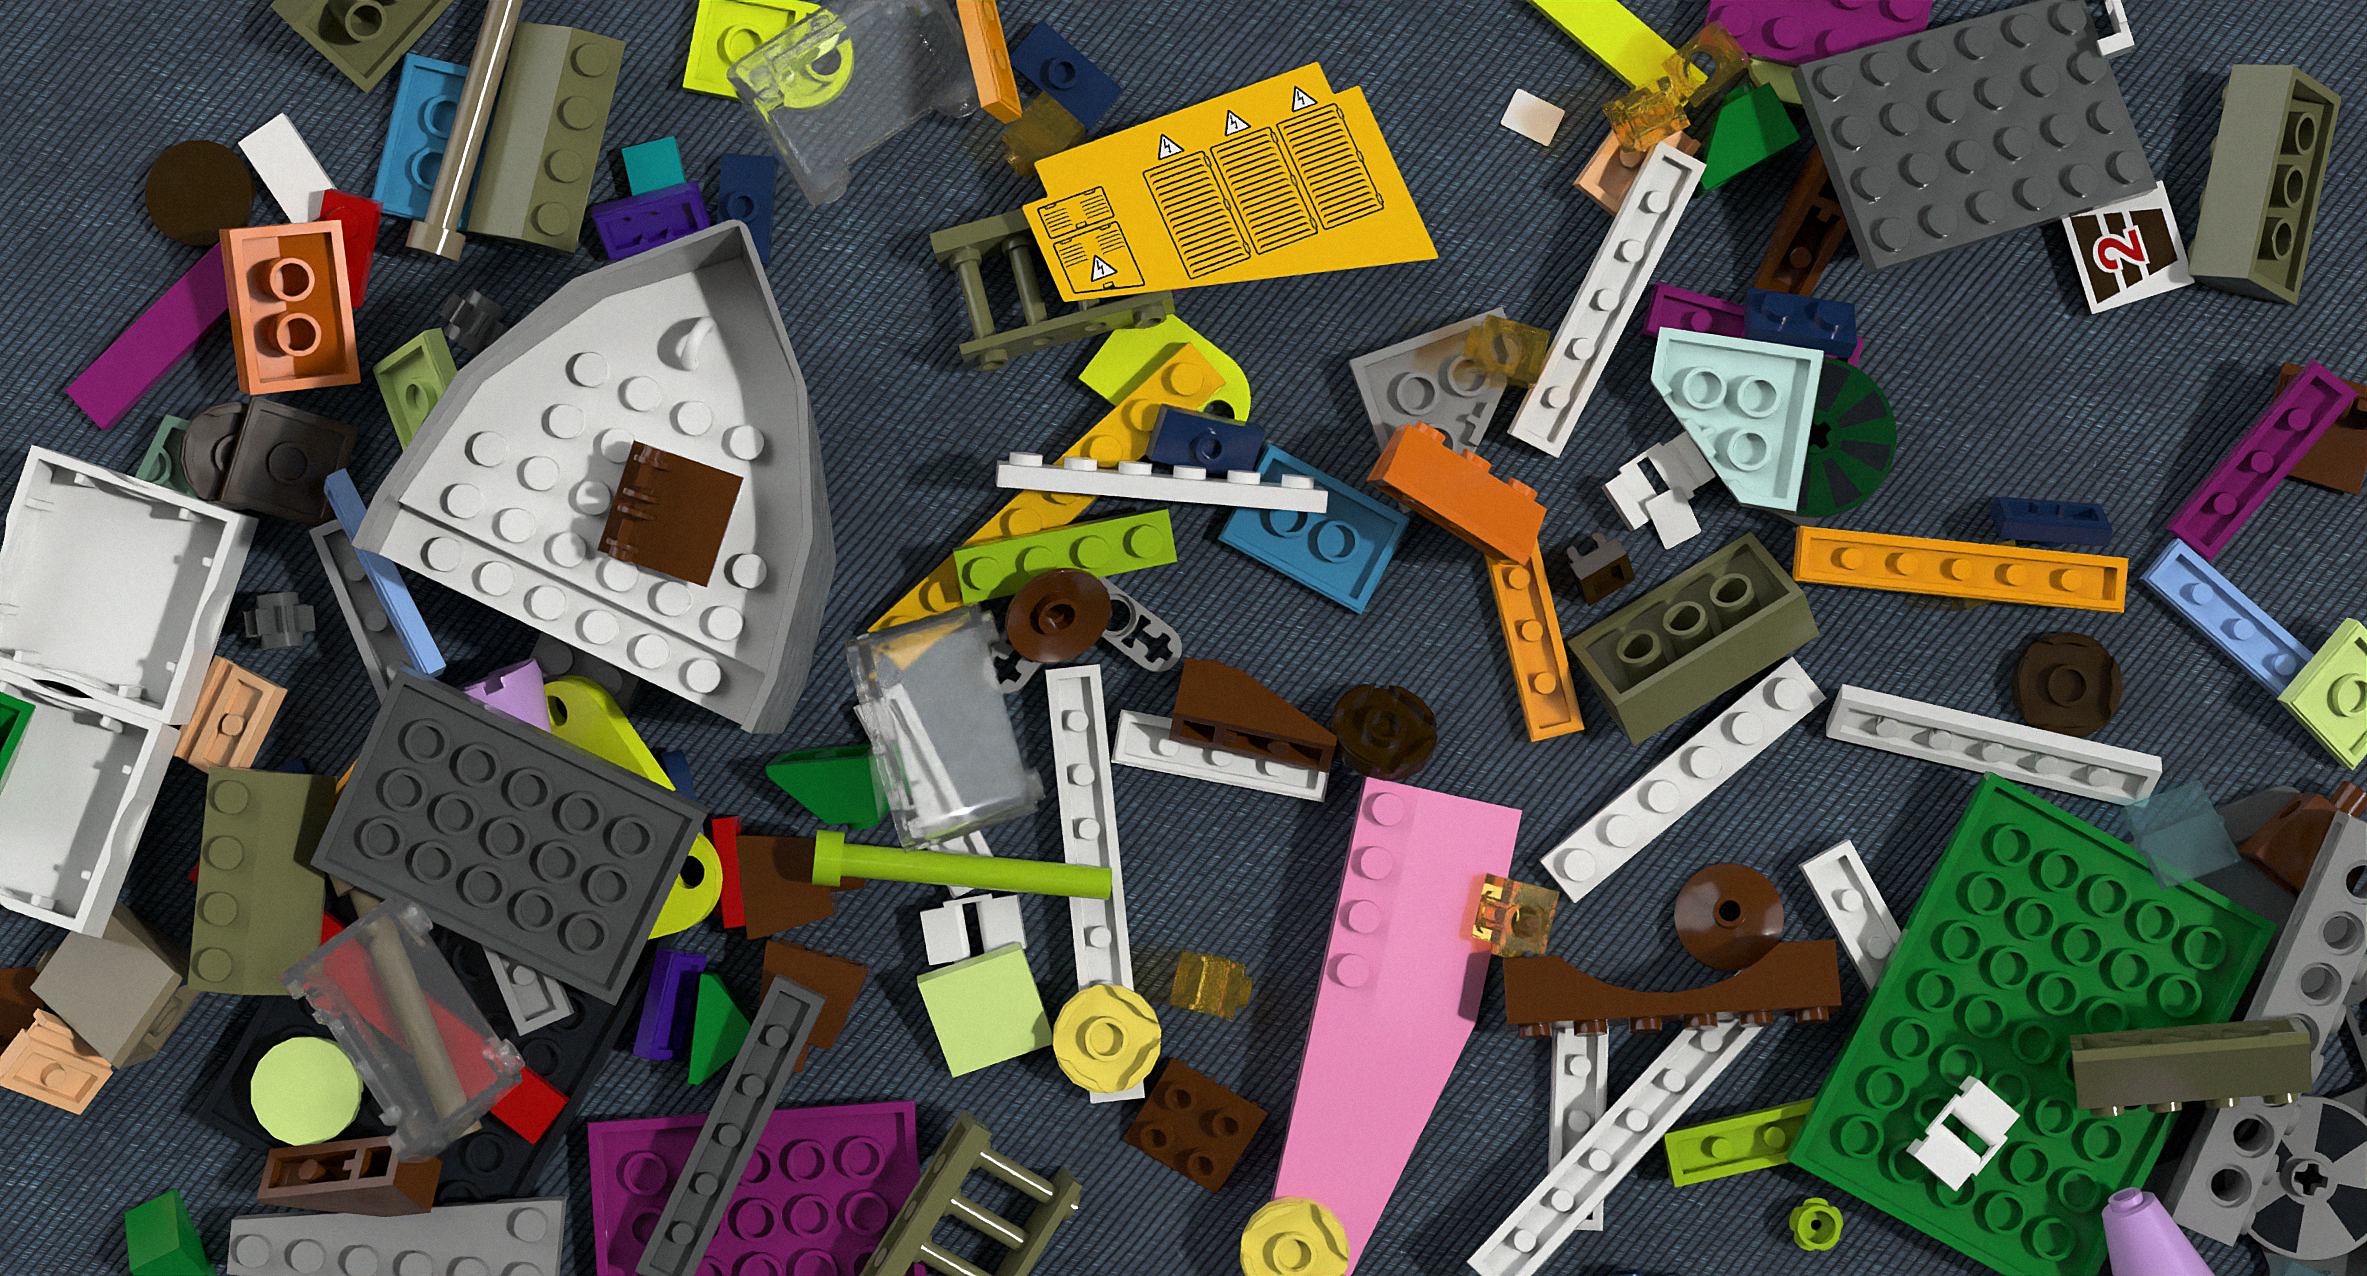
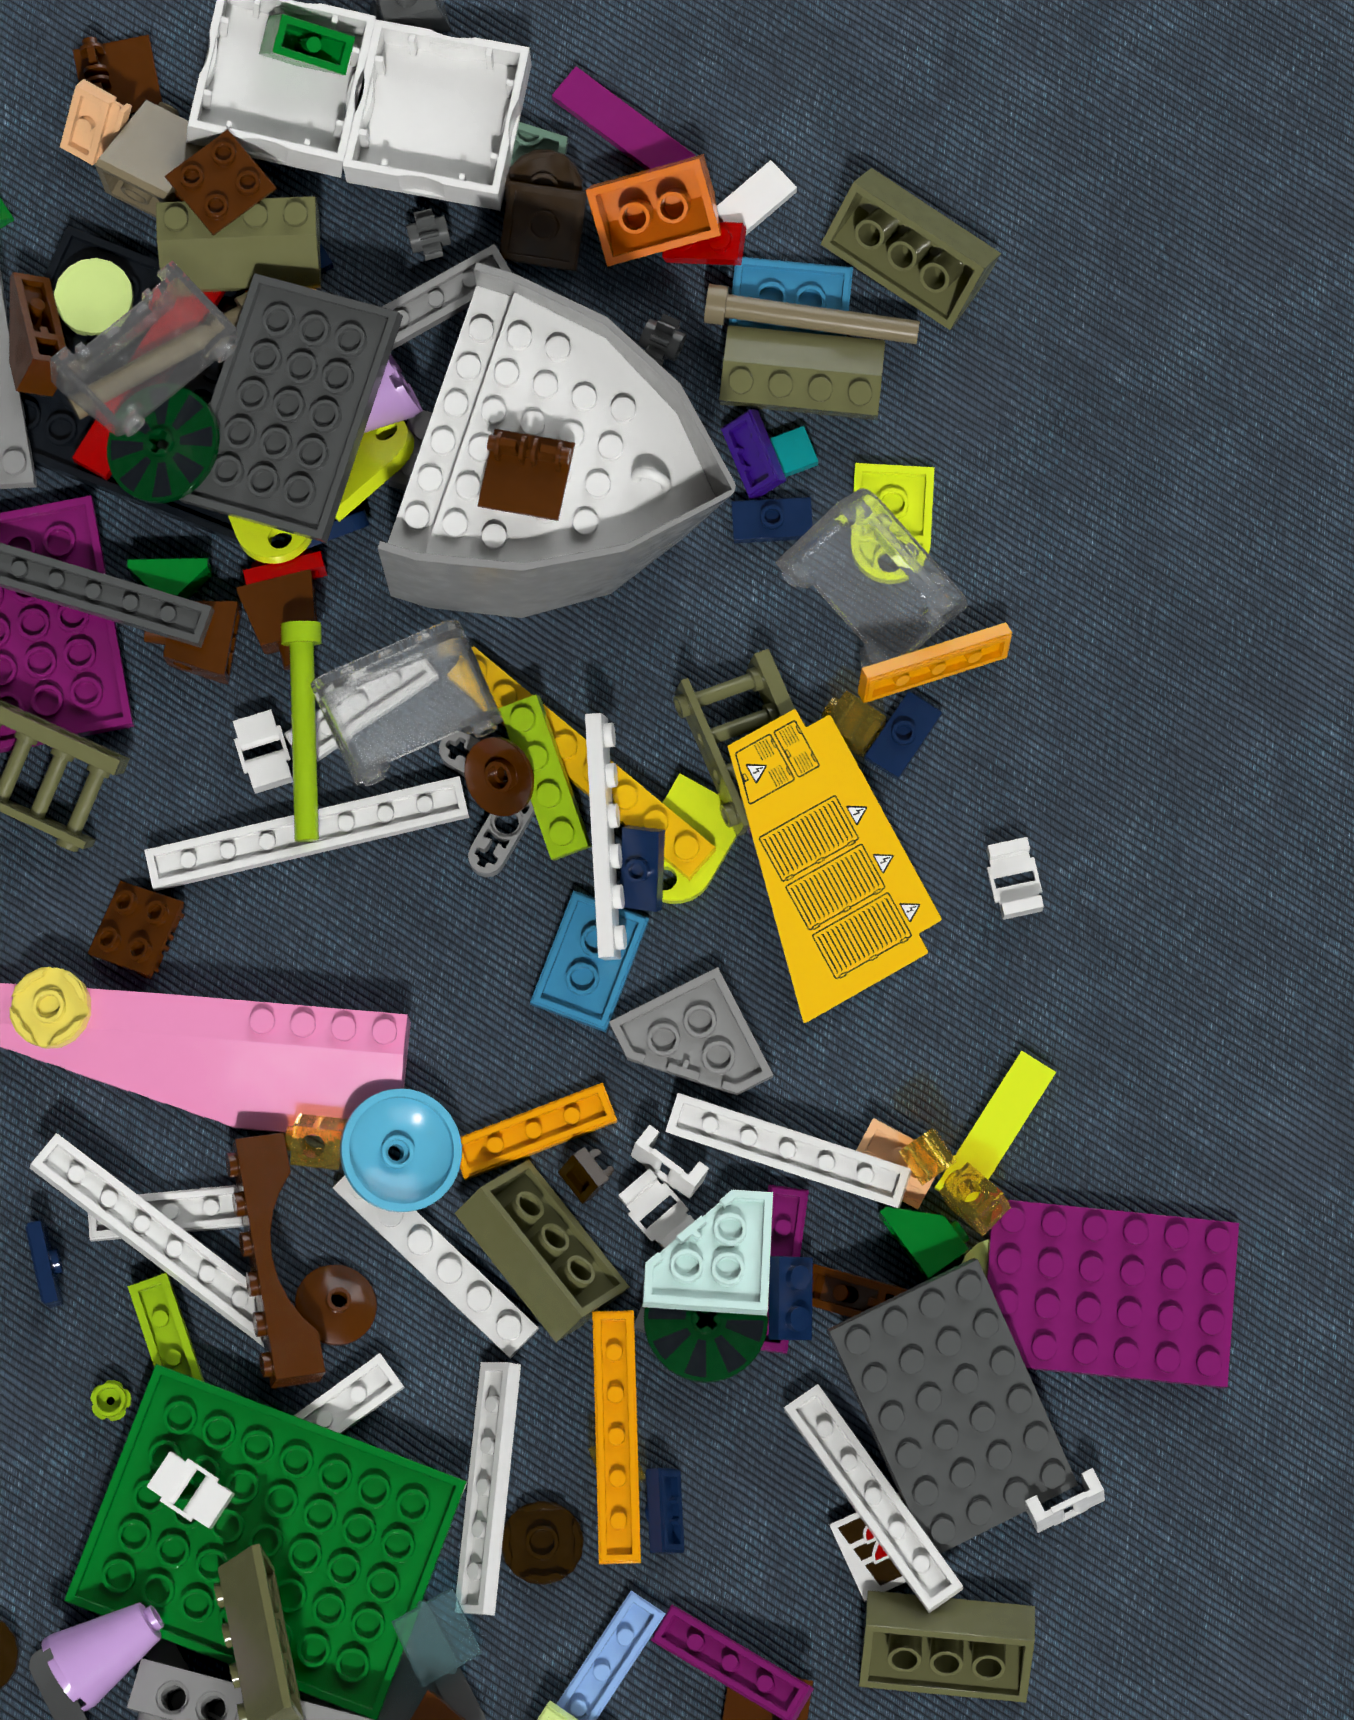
camera: 85 degrees right, 10 degrees down
(171, 896) = (220, 182): none -> reddish brown hinge
(198, 191) = (732, 139): dark brown tile -> none
(229, 717) = (355, 209): light nougat plate -> none
(385, 579) = (459, 302): light blue tile -> none
(415, 381) = (616, 301): yellowish green tile -> none
(572, 994) = (171, 473): none -> dark green piece
(669, 1004) = (183, 540): dark purple plate -> none
(834, 783) = (356, 629): green slope -> none
(986, 1009) = (204, 766): yellowish green tile -> none
(1107, 1038) = (193, 854): light yellow tile -> none
(1145, 743) = (412, 915): white tile -> none
(1210, 984) = (241, 925): clear yellow brick -> none
(1239, 715) = (443, 913): reddish brown slope -> none
(1383, 731) = (443, 1026): dark brown tile -> none
(1459, 494) = (625, 1053): orange slope -> none
(1530, 344) = (737, 1095): clear yellow brick -> none
(1532, 117) = (922, 1084): white sticker -> none
(1566, 781) = (427, 1148): none -> medium azure dish
(1631, 437) = (653, 1159): none -> white piece
(1673, 517) = (633, 1227): white sticker -> none
(2074, 249) = (873, 1498): none -> white plate

